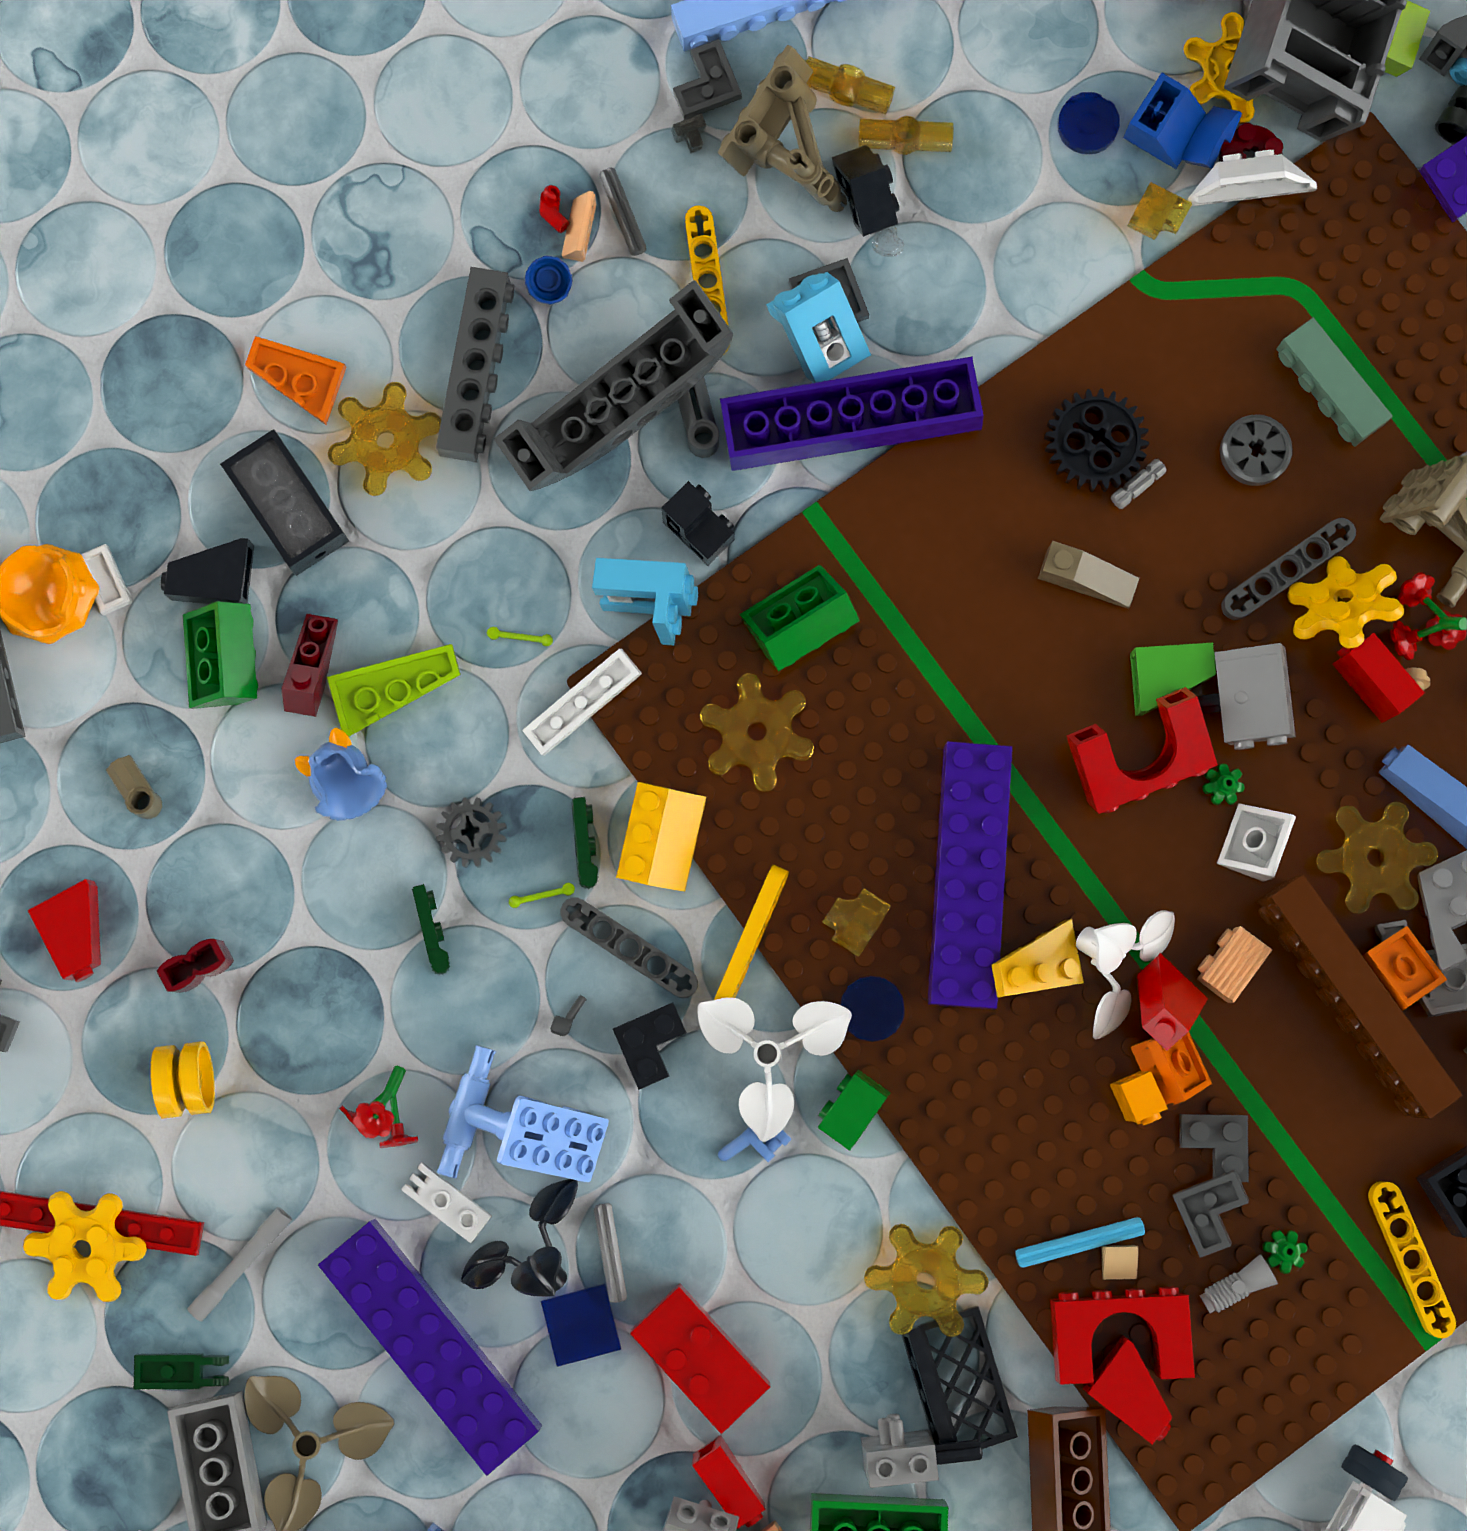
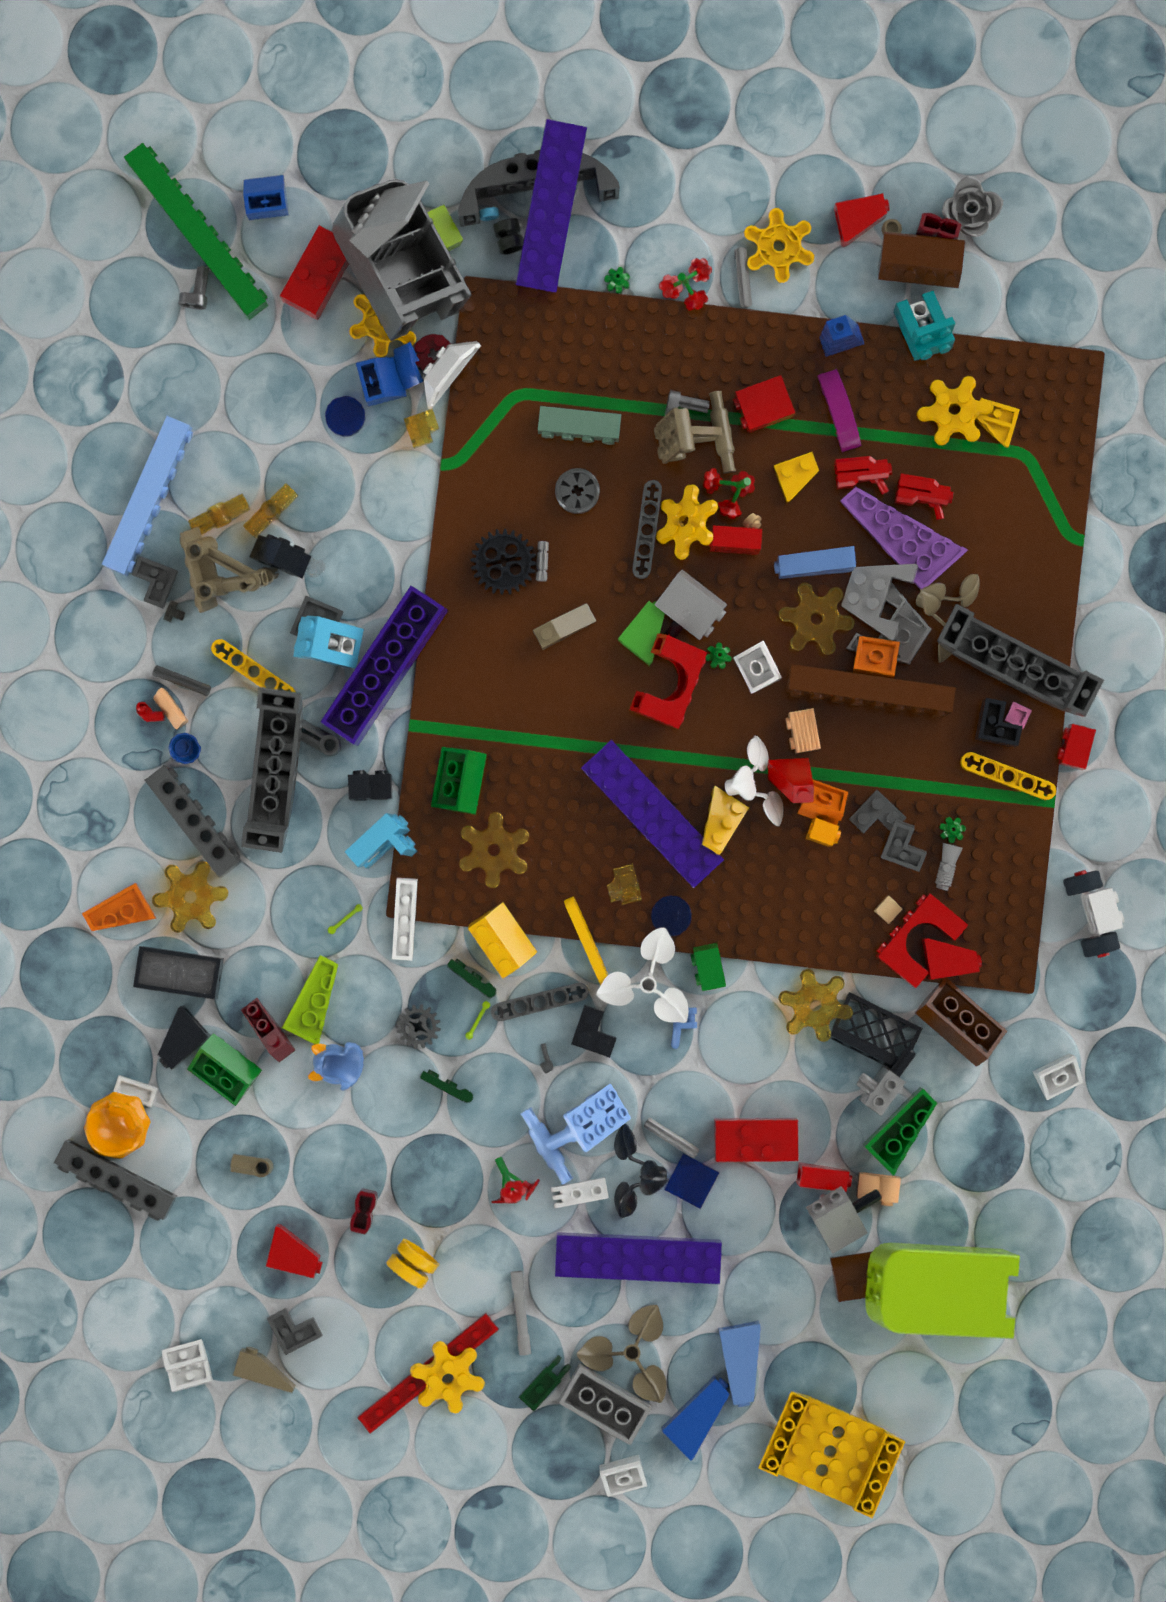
camera: 50 degrees left, 5 degrees up
(1080, 1242) = (863, 919): medium azure axle -> none

